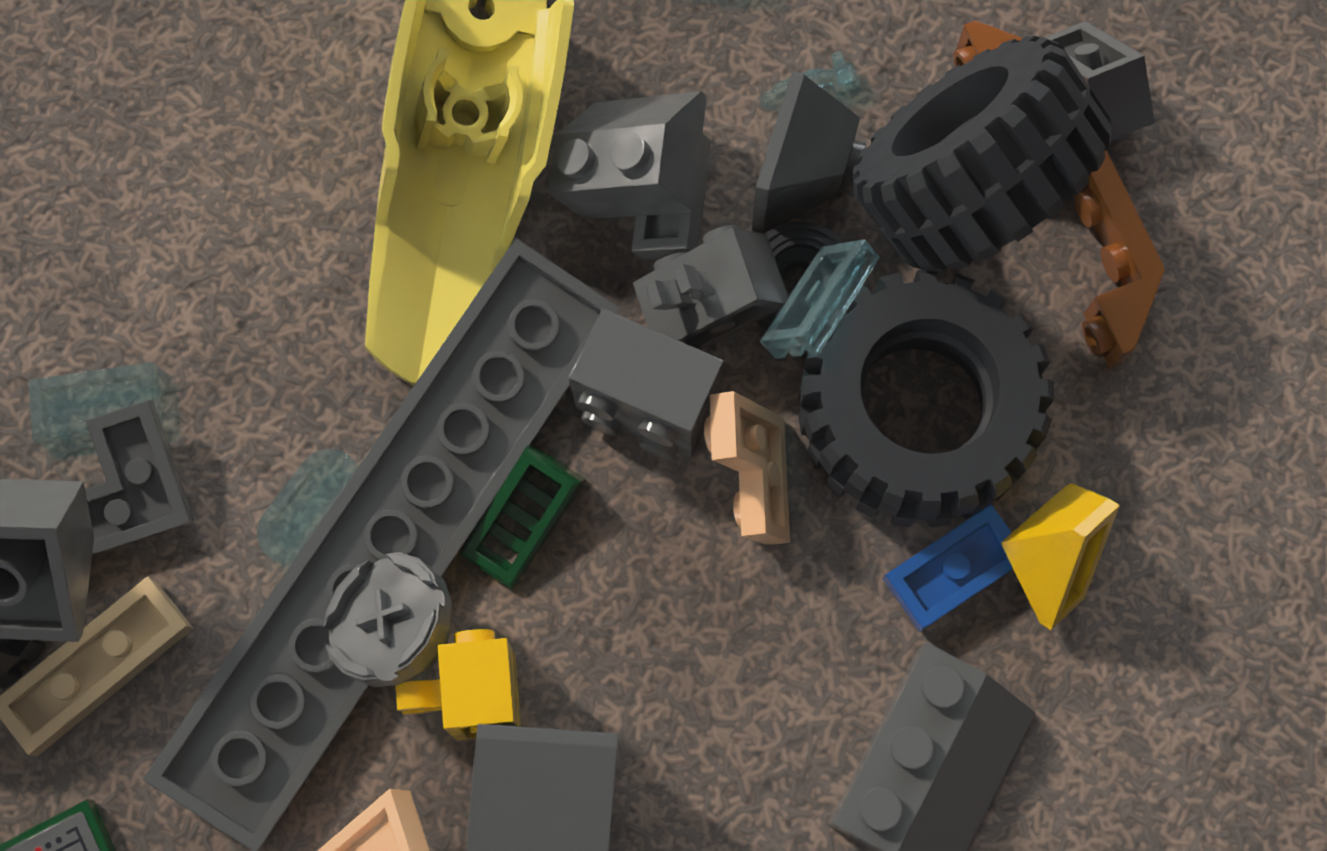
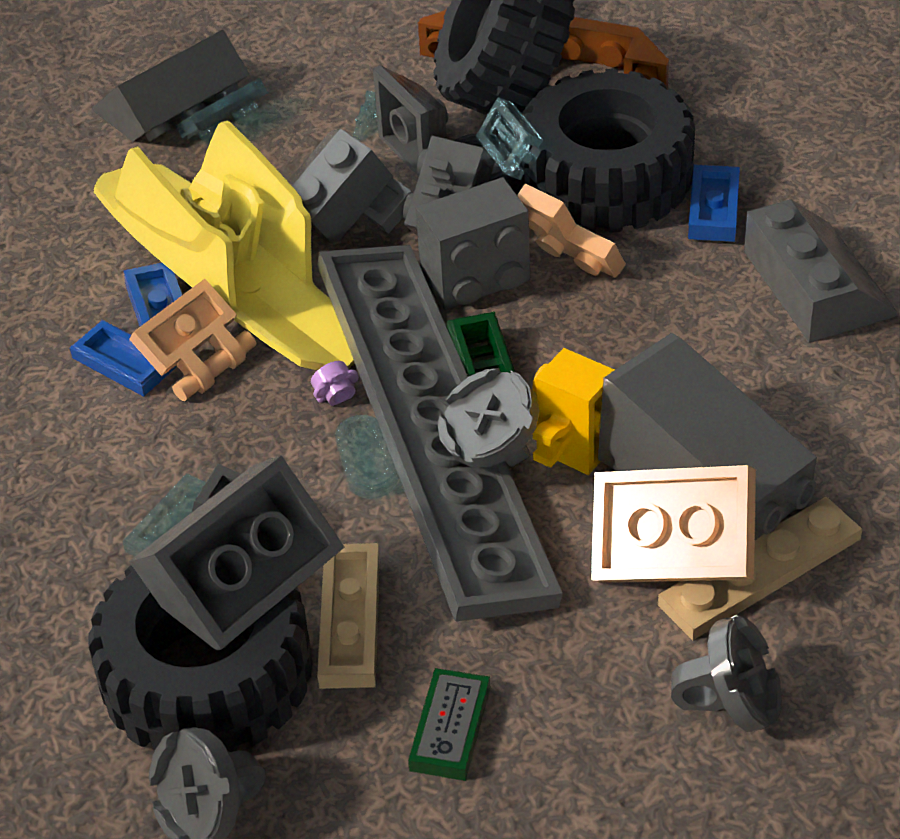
camera: 50 degrees left, 30 degrees down
(260, 163) = (116, 357): none -> blue tile
(308, 202) = (184, 327): none -> light nougat plate
(343, 135) = (151, 290): none -> blue plate
(372, 398) = (334, 383): none -> lavender plate
(1060, 550) = (748, 142): yellow slope -> none

